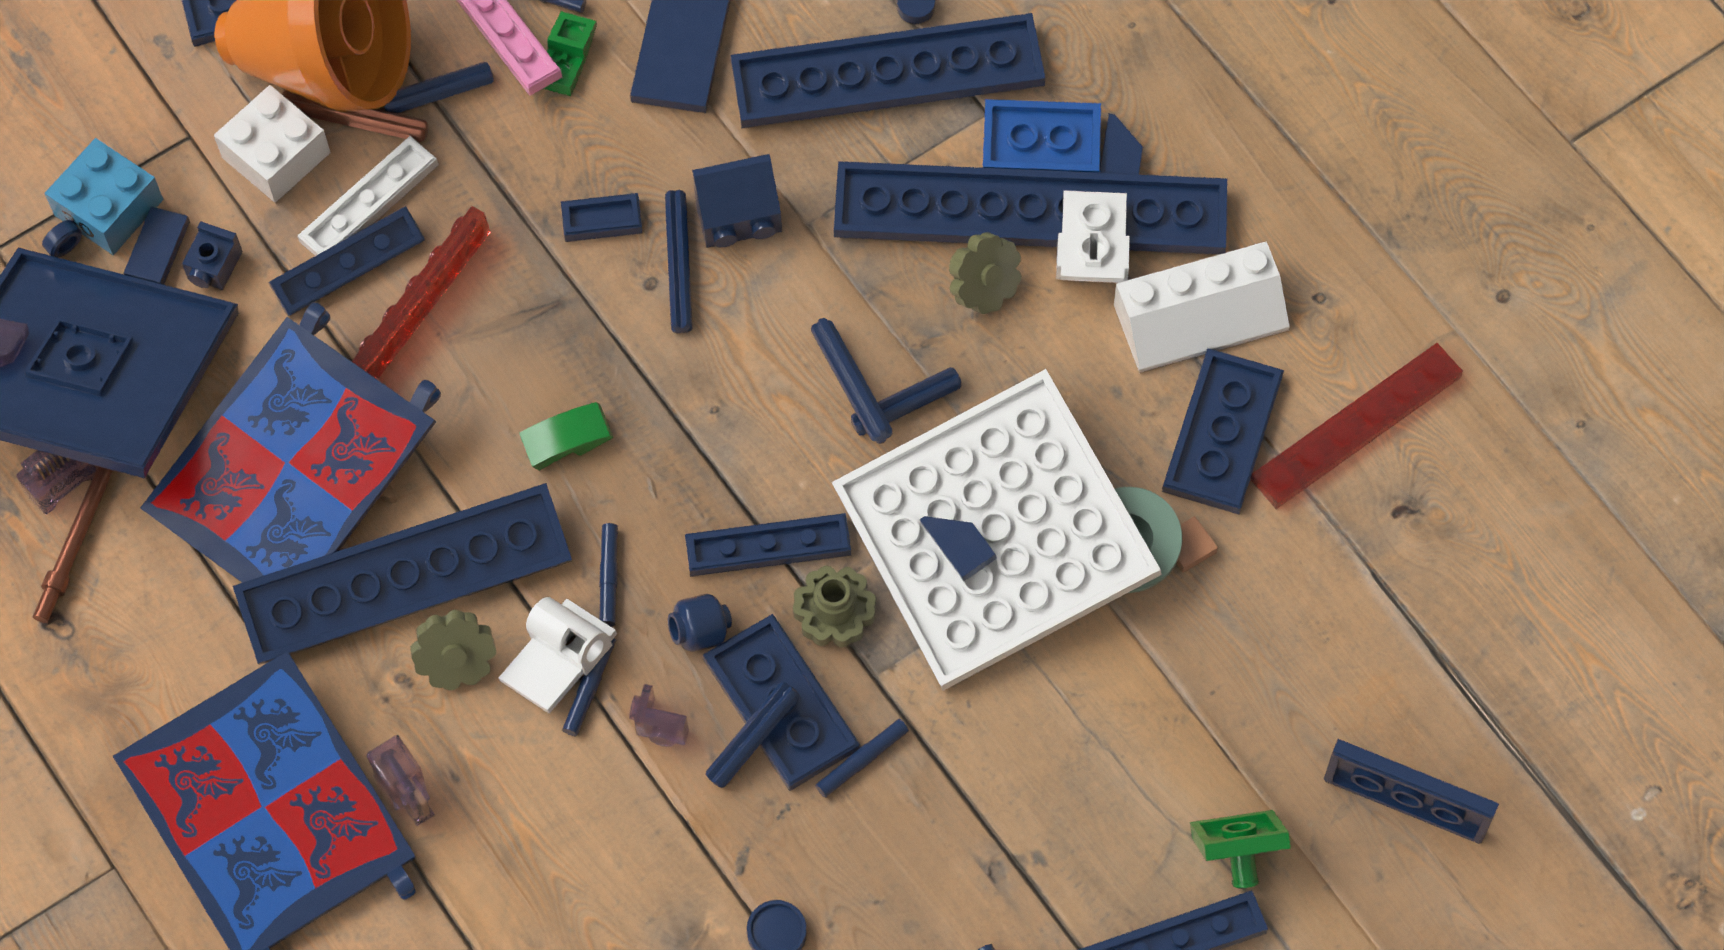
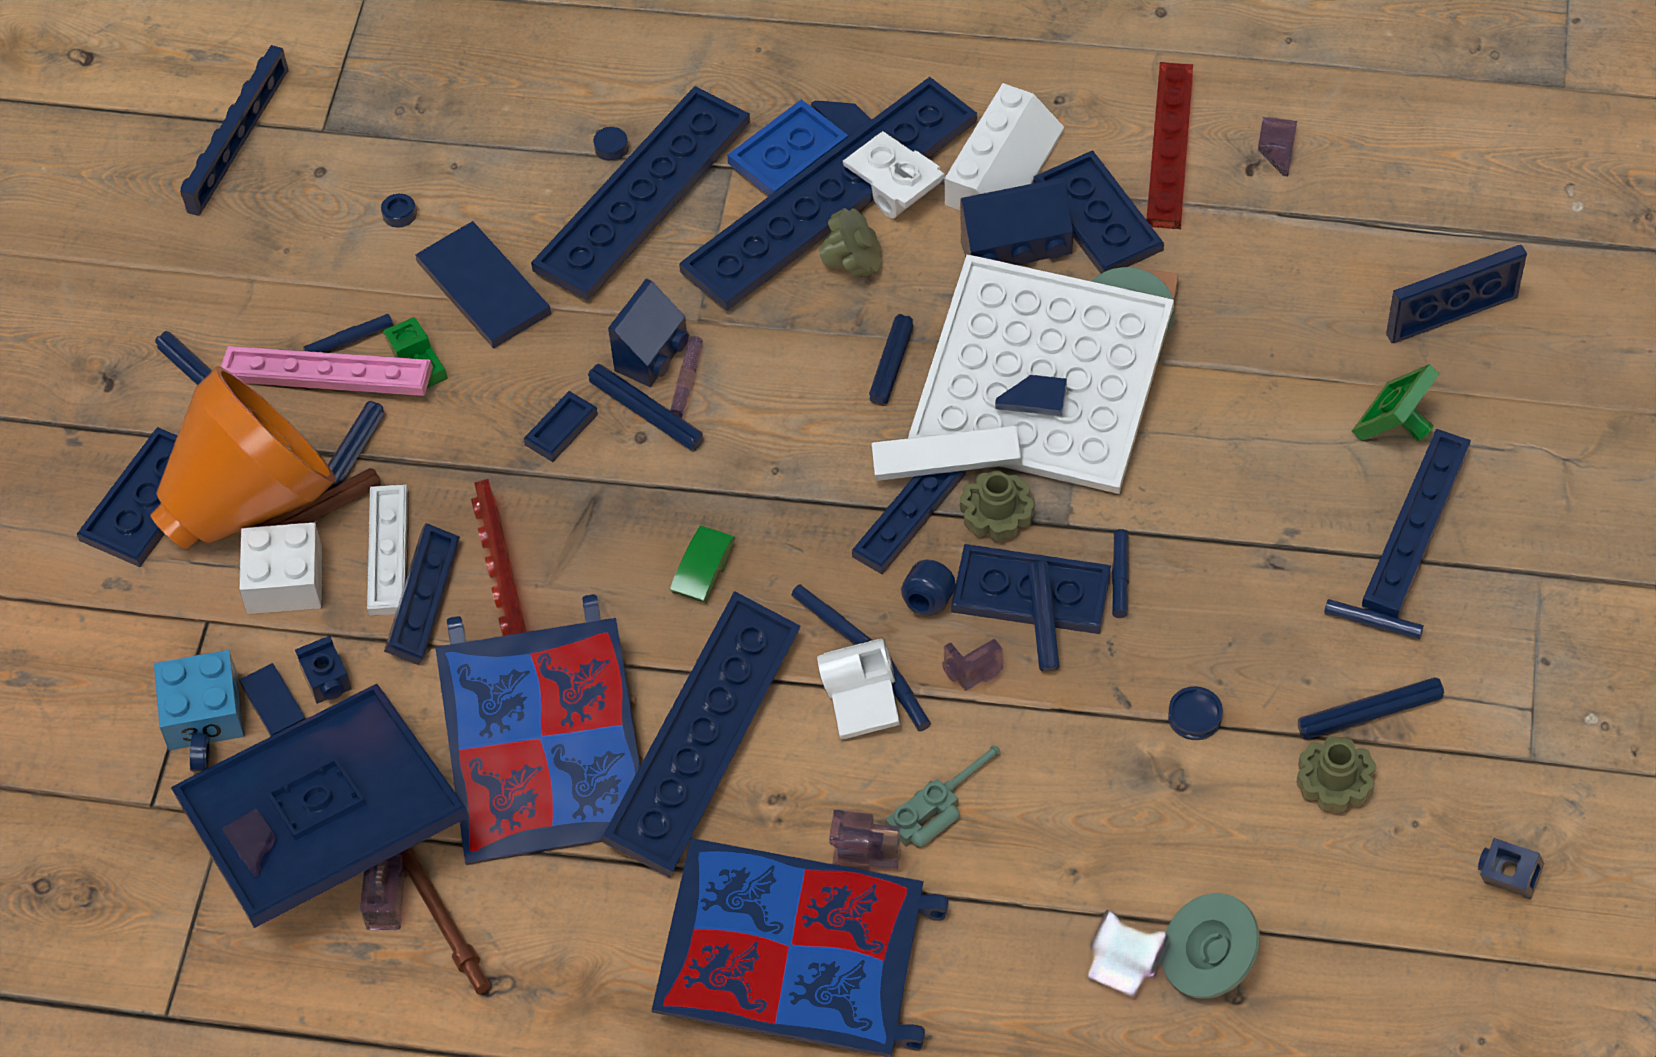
camera: 45 degrees left, 10 degrees down
(453, 650) = (796, 739): olive plant -> none
(498, 796) = (932, 800): none -> sand green piece
(738, 265) = (686, 375): none -> piece
(842, 524) = (946, 453): none -> white tile
(851, 380) = (847, 372): dark blue axle -> none
(1127, 381) = (1018, 223): none -> dark blue slope
(1450, 509) = (1277, 142): none -> clear purple tile

